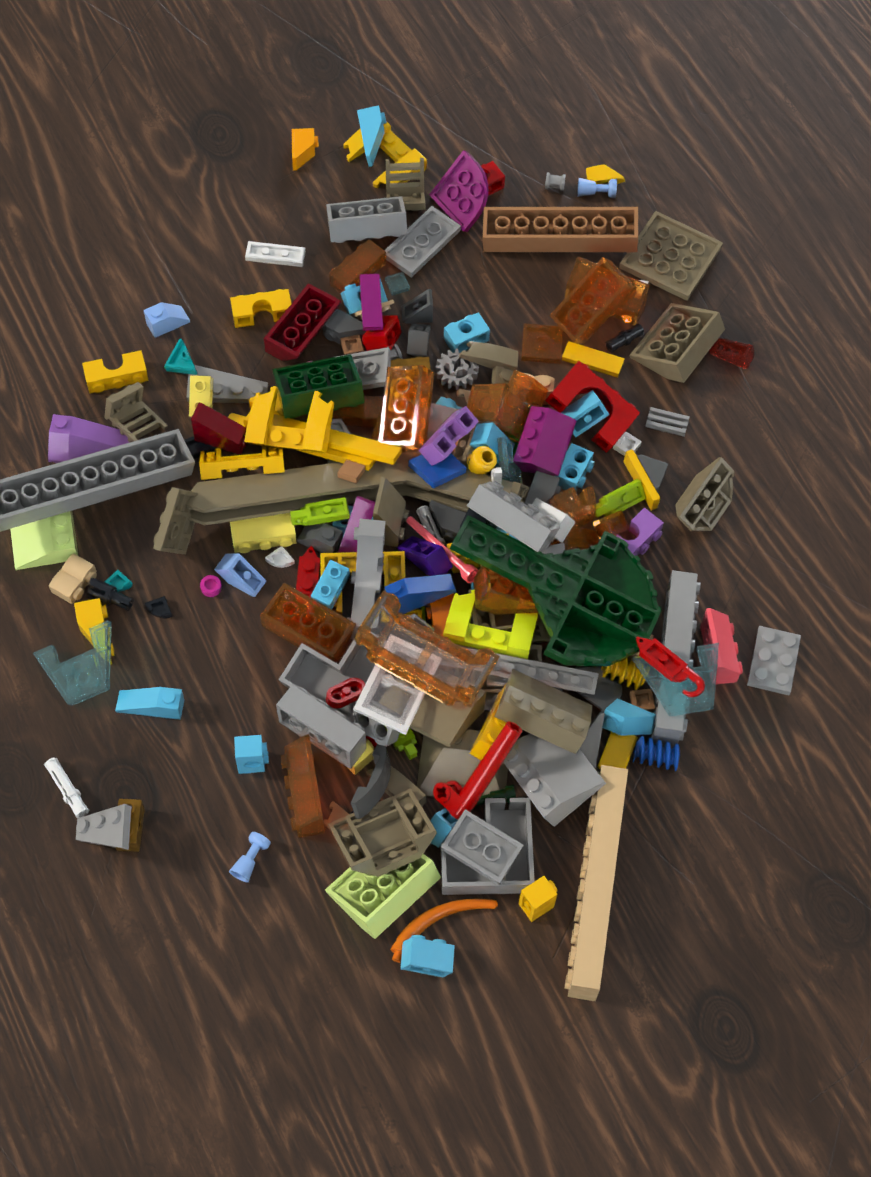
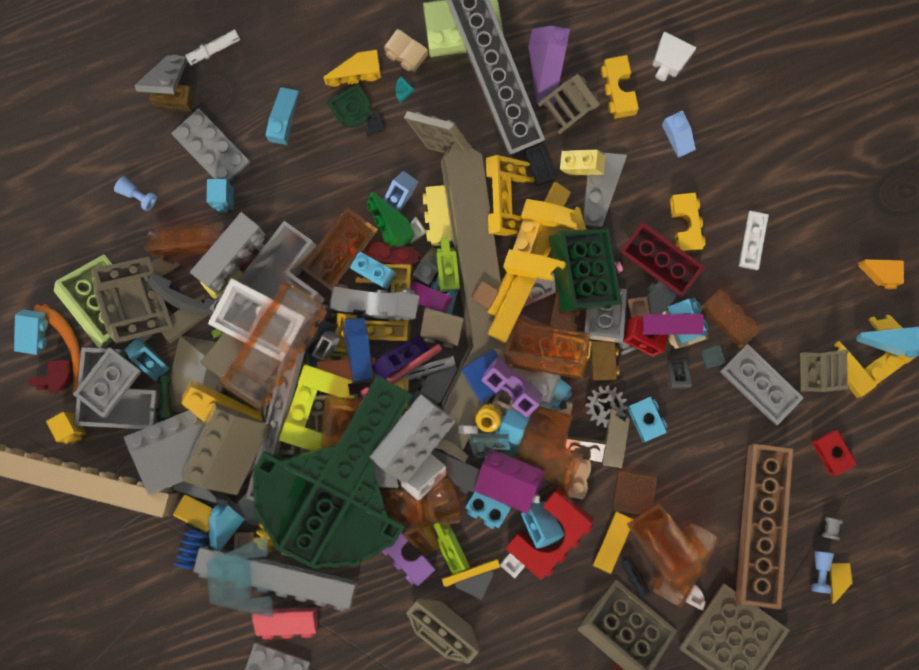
camera: 100 degrees right, 20 degrees up
(81, 328) = (671, 56): none -> white torso
(83, 674) = (310, 56): clear light blue wing -> none
(108, 594) = (387, 80): black arm -> none
(138, 633) = (351, 107): none -> dark green tile
(180, 360) = (632, 146): teal tile -> none
(190, 781) = (210, 147): none -> light grey plate
(210, 586) = (392, 169): dark pink tile -> none
(217, 430) = (543, 175): dark red slope -> none
(270, 578) = (393, 225): none -> green slope
(343, 694) = (266, 277): red plate -> none
(366, 219) = (784, 329): light grey brick -> none
(418, 340) = (643, 372): dark grey slope -> none
(458, 798) = (158, 372): red axle -> none
(462, 191) = (816, 429): magenta plate -> none
(480, 921) = (59, 377): none -> dark red brick
(668, 419) = (531, 623): light grey tile -> none
(669, 664) = (246, 567): red plate -> none

